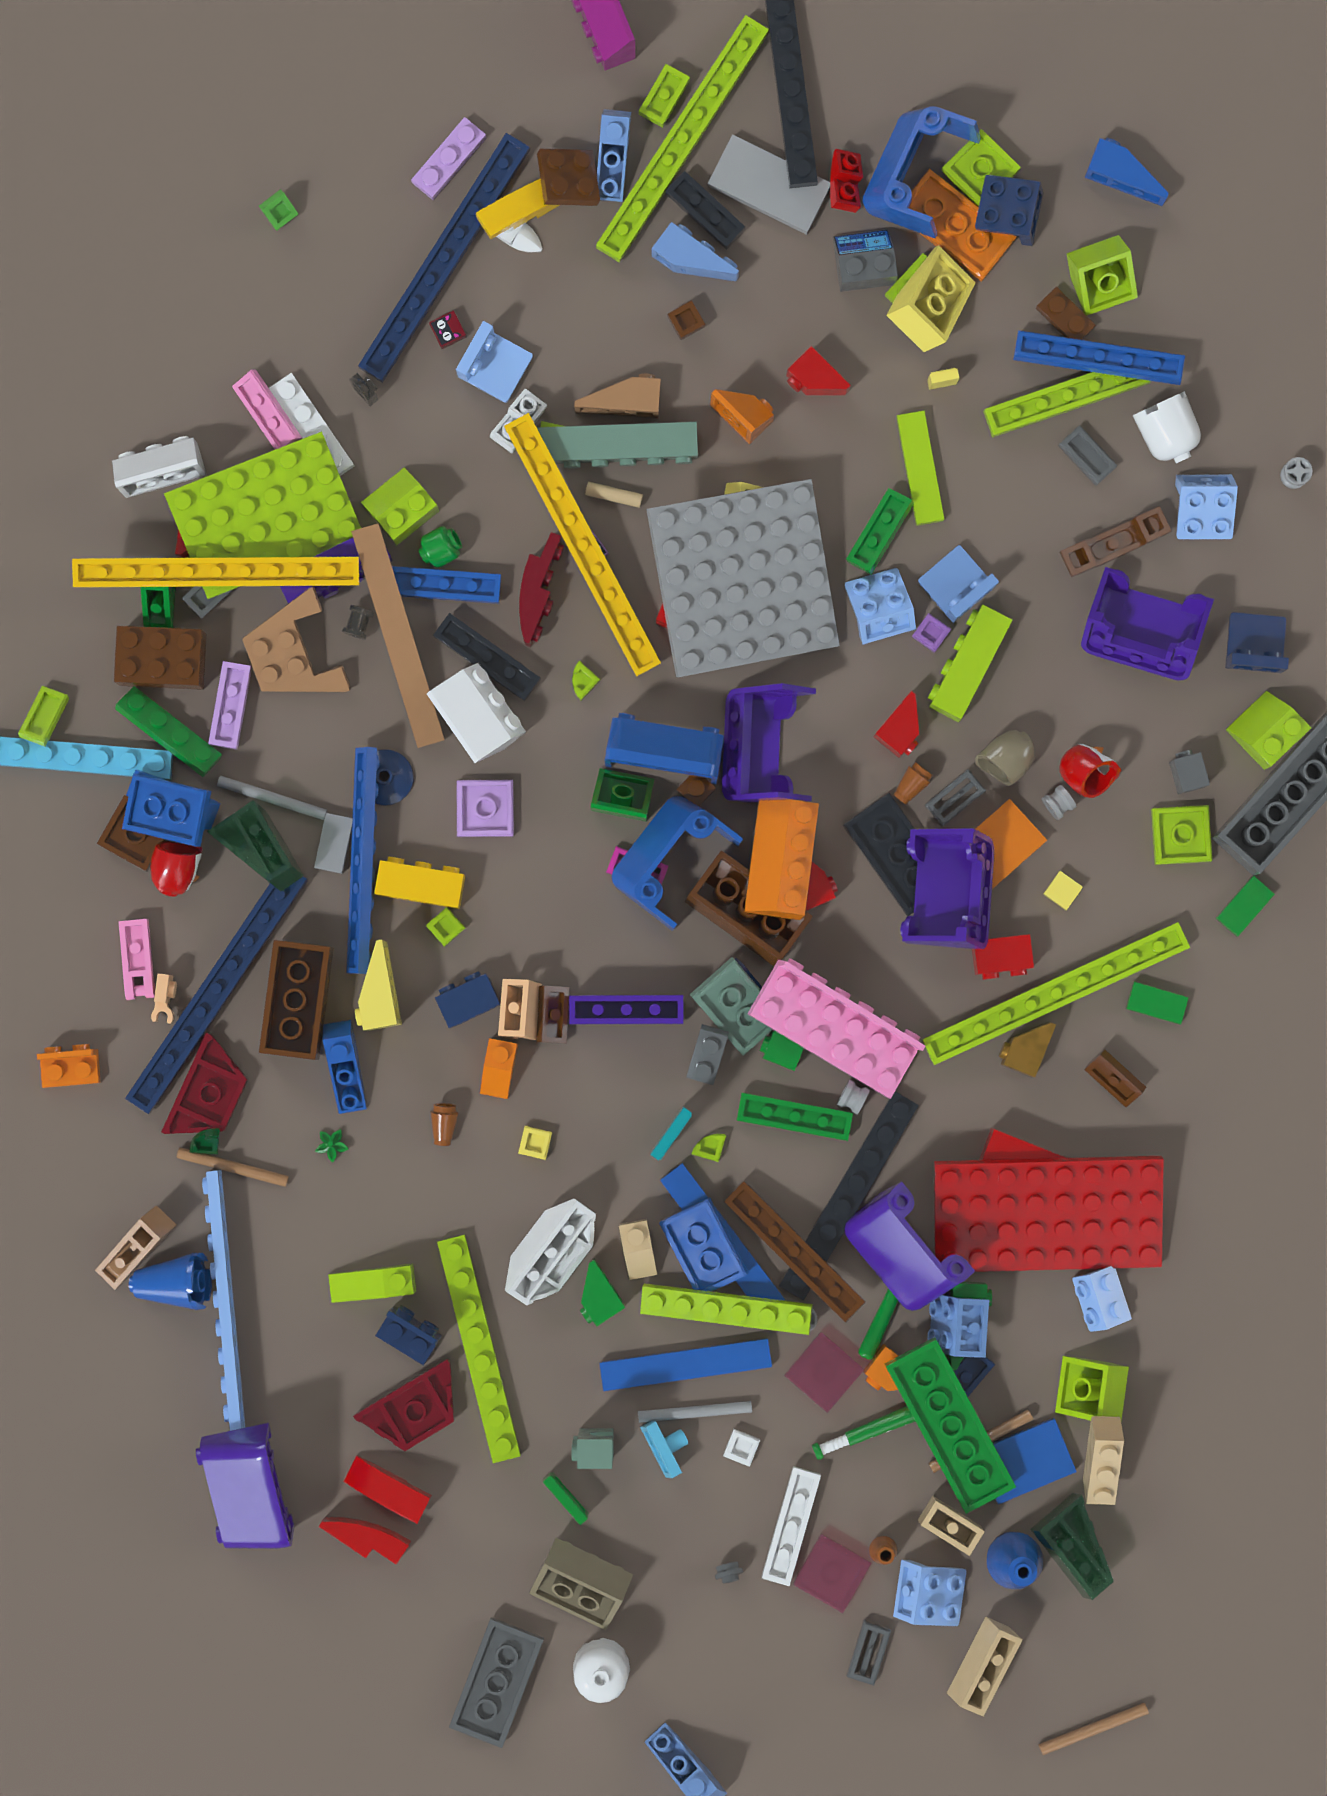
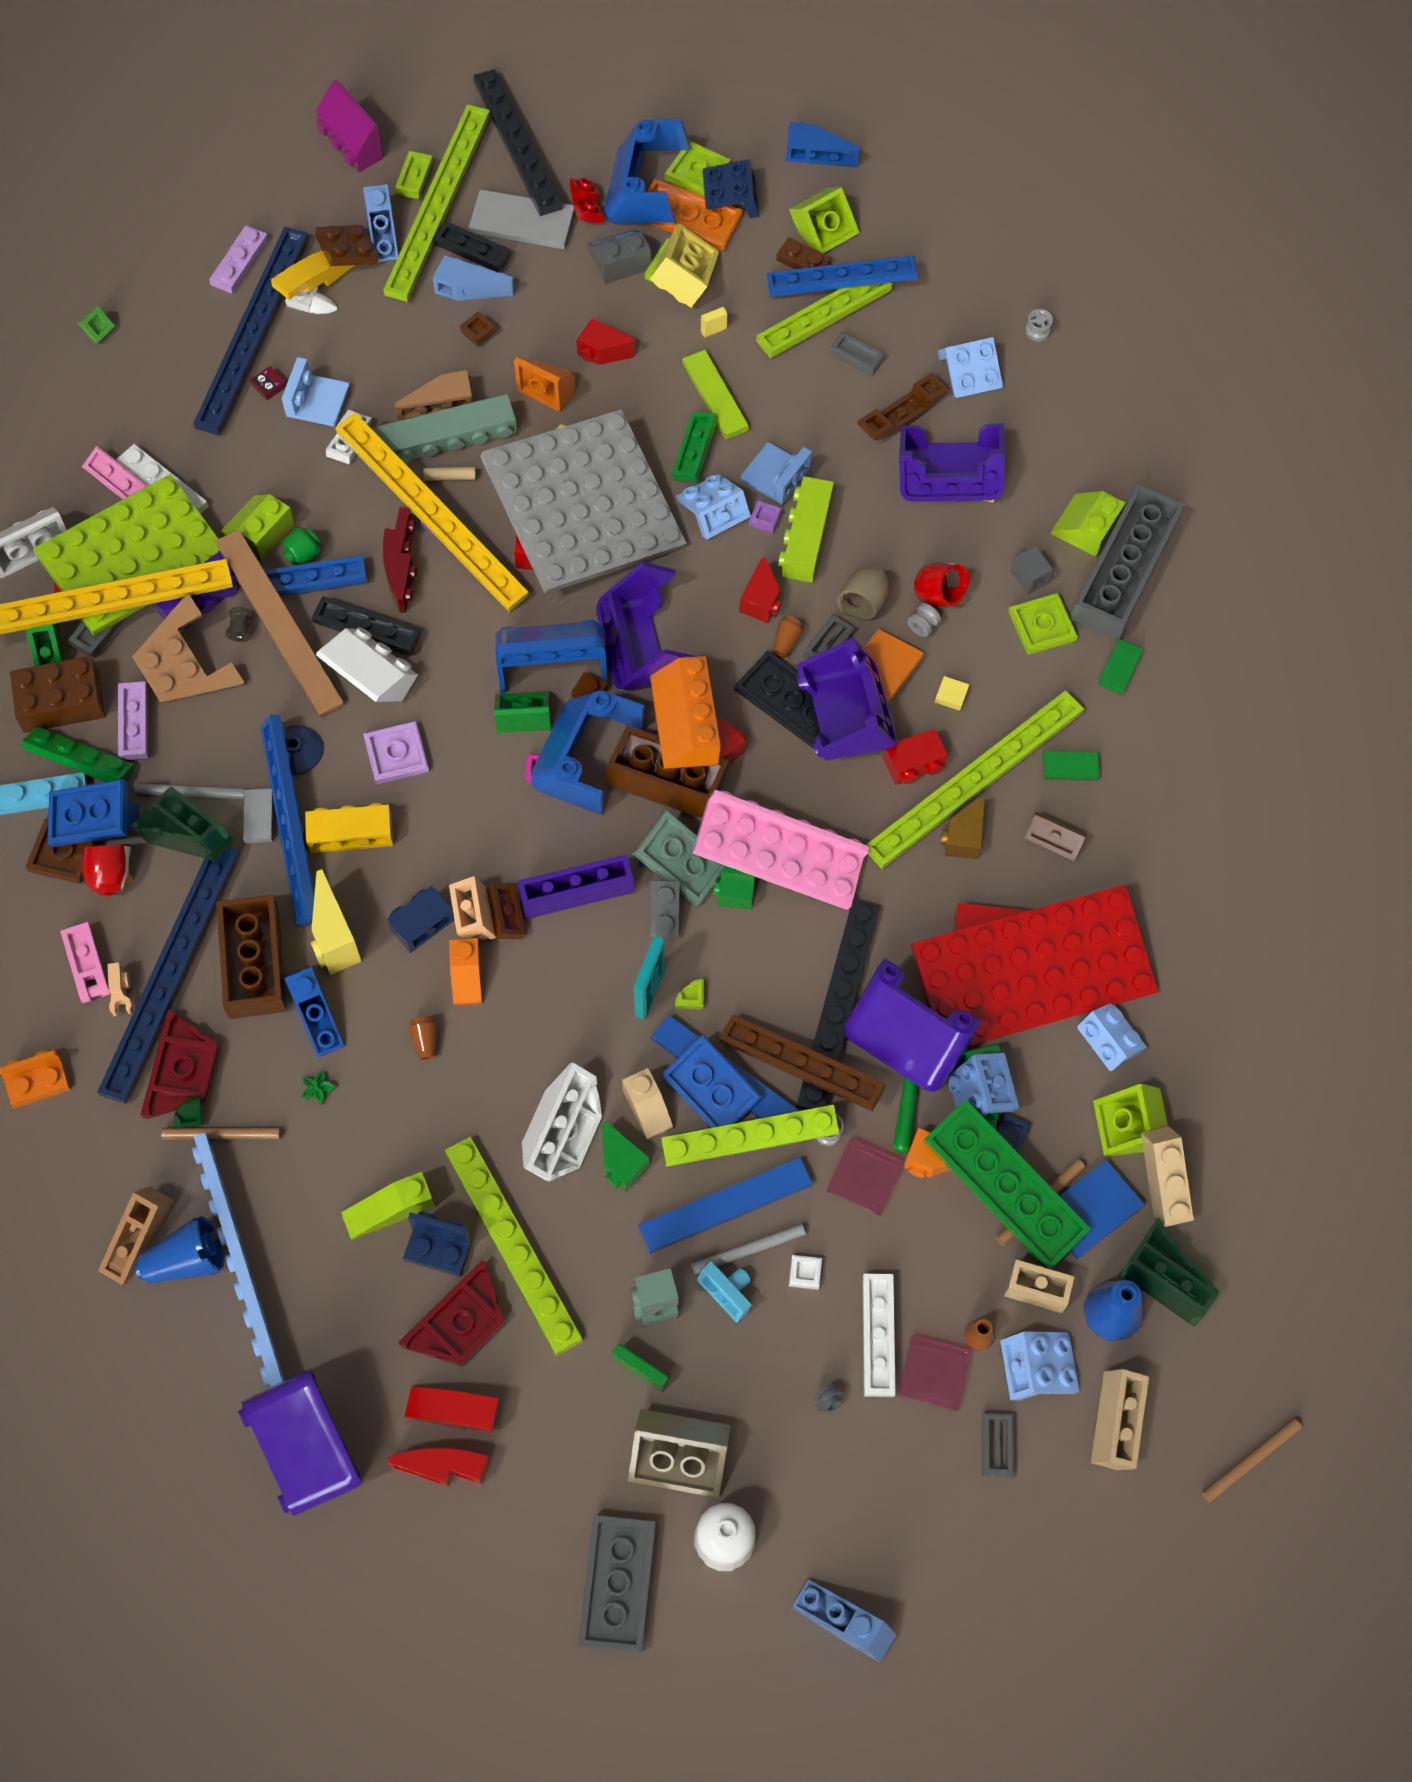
camera: 15 degrees left, 20 degrees down
(364, 388) = (202, 439): clear smoke plate -> none
(445, 926) = (383, 862): lime tile -> none
(535, 1142) = (519, 1034): light yellow tile -> none
(583, 680) = (461, 626): lime tile -> none
(794, 1116) = (764, 945): green plate -> none
(853, 1097) = (815, 913): light grey wheel -> none
(869, 1430) = (931, 1217): green piece -> none
(1169, 428) = (919, 310): white cylinder -> none
(1256, 643) = (1053, 458): dark blue bracket -> none

